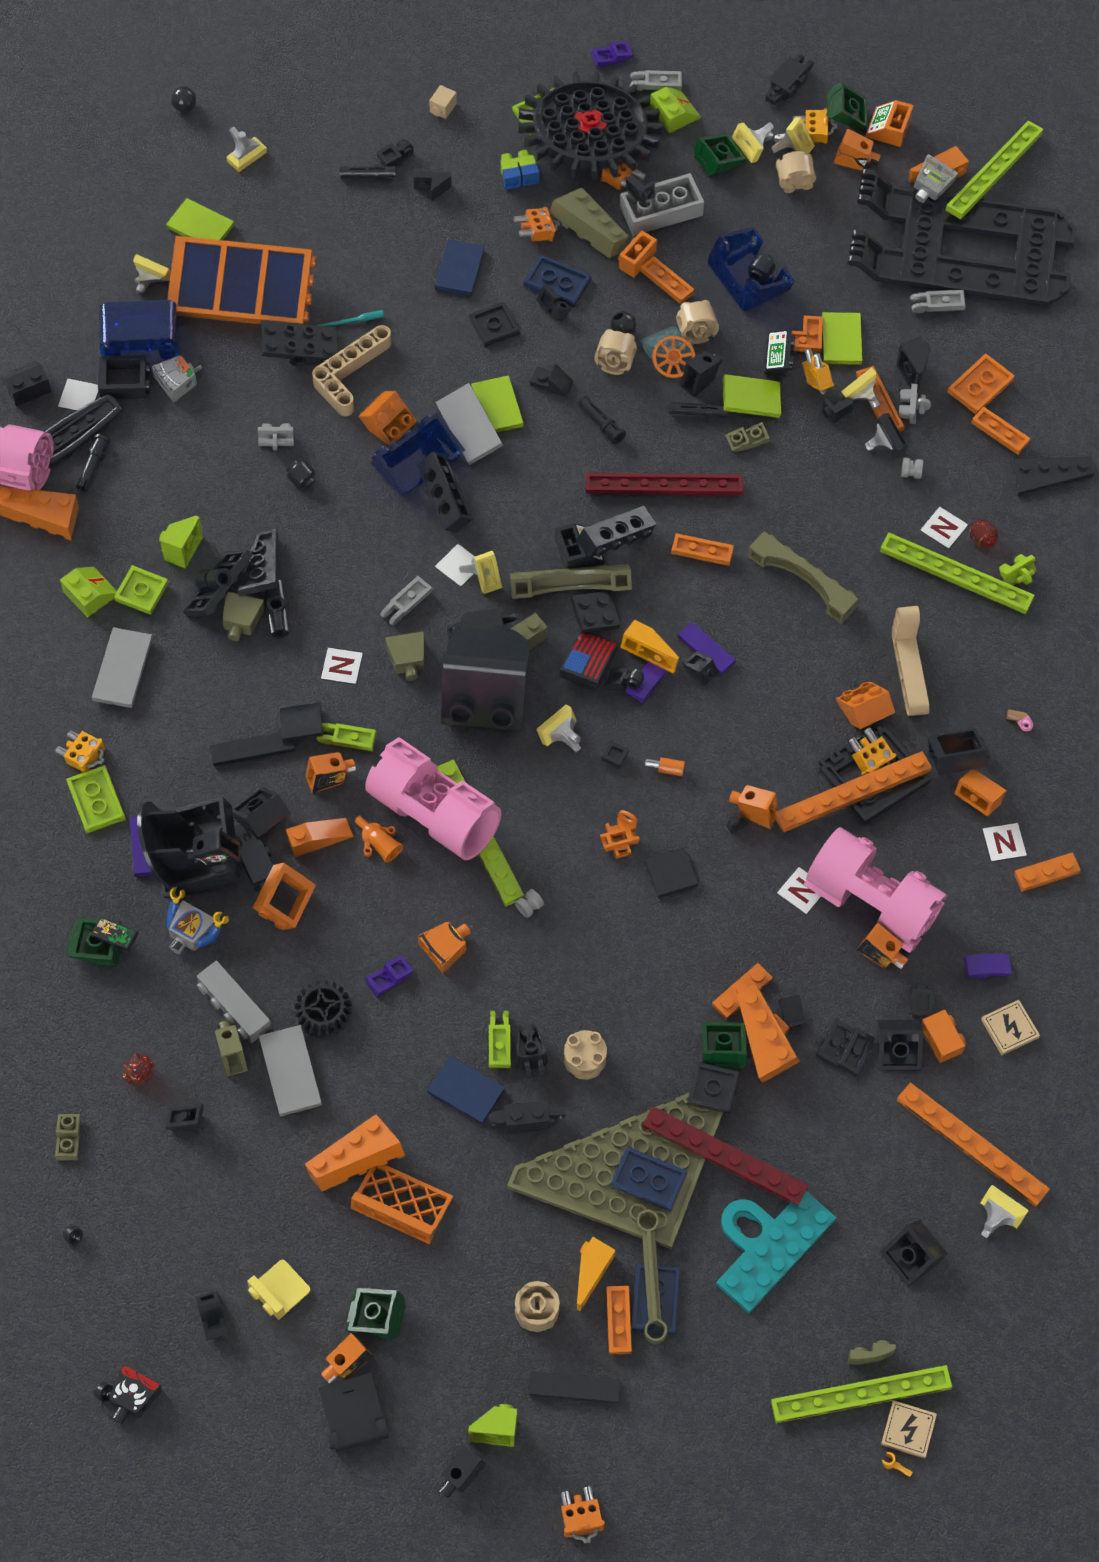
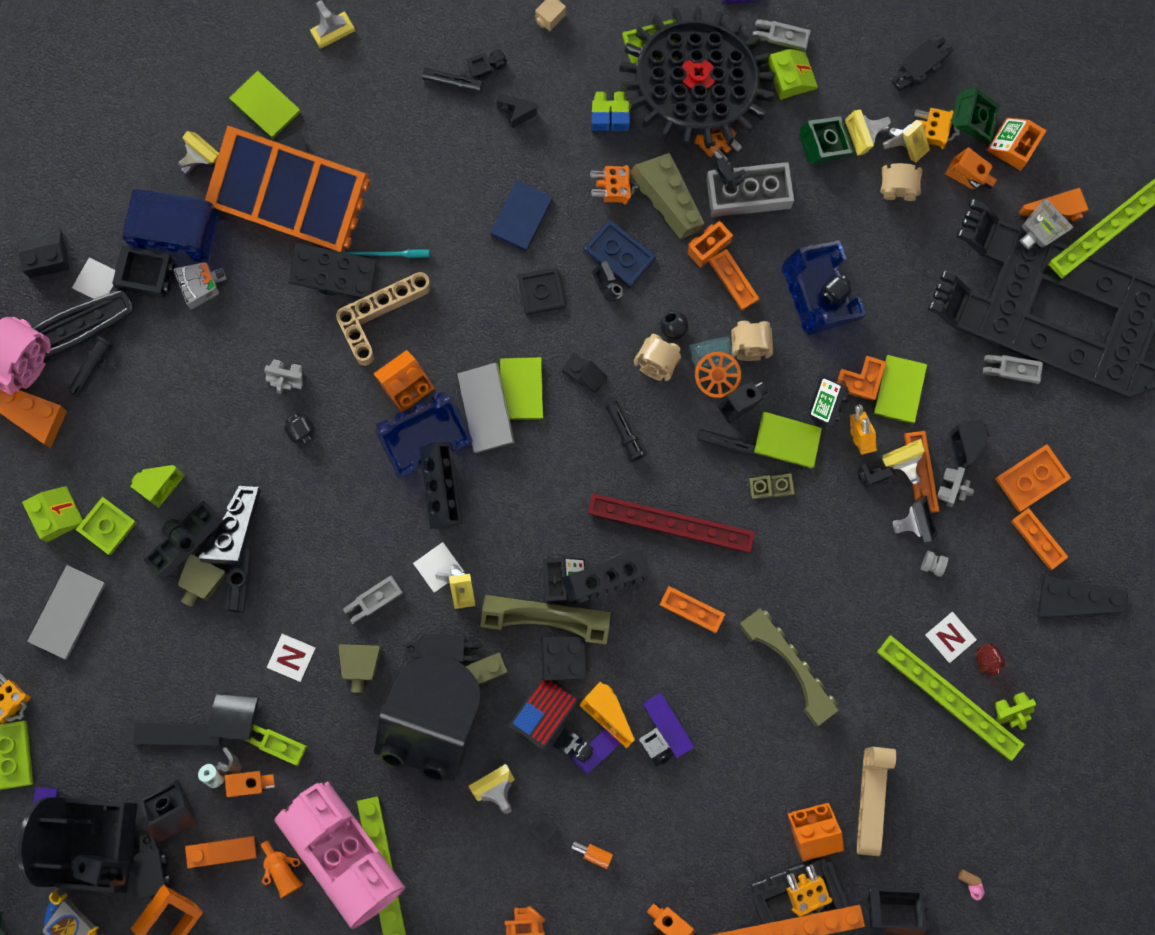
camera: 10 degrees right, 15 degrees up
(295, 771) = (213, 775): none -> leg

